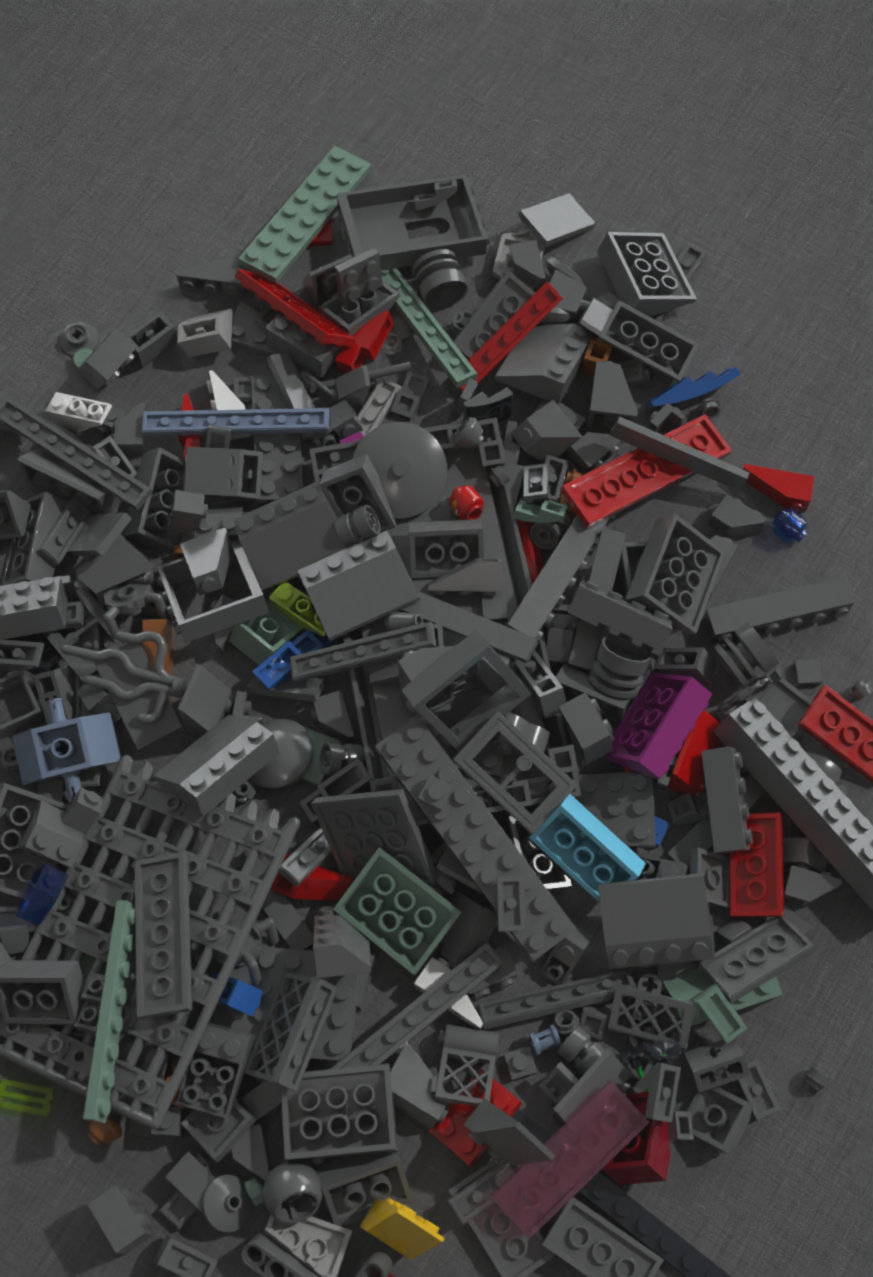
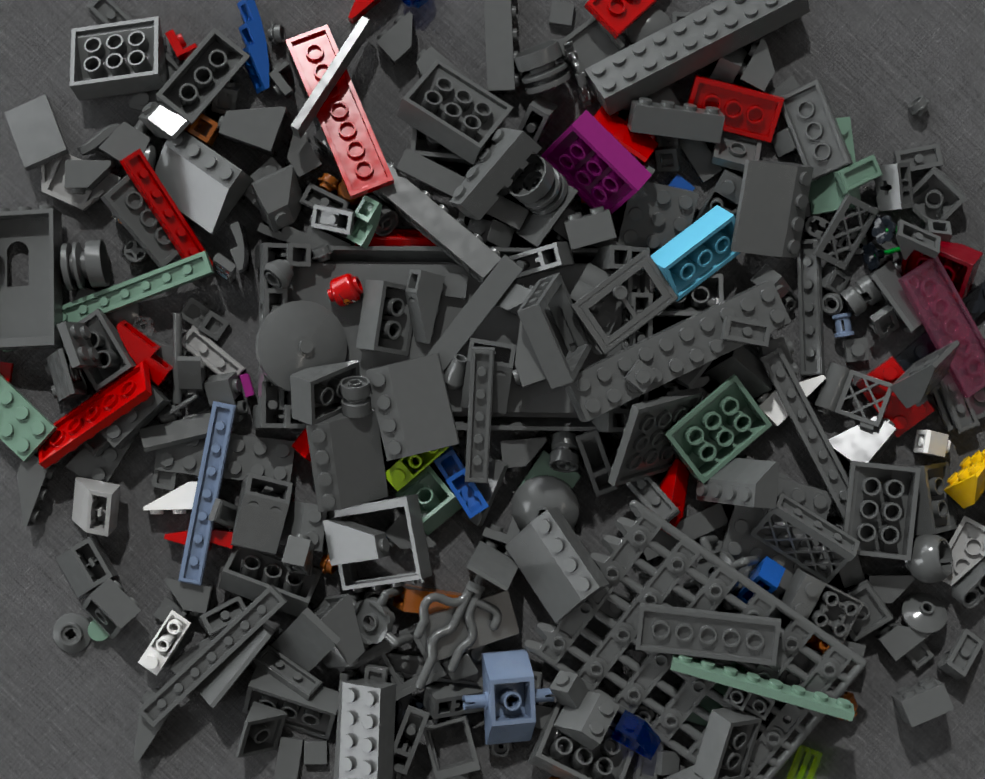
camera: 80 degrees left, 20 degrees up
(255, 1191) = (918, 588): sand green tile -> none
(429, 1172) = (931, 443): none -> white slope
(676, 320) = (178, 44): none -> red bracket

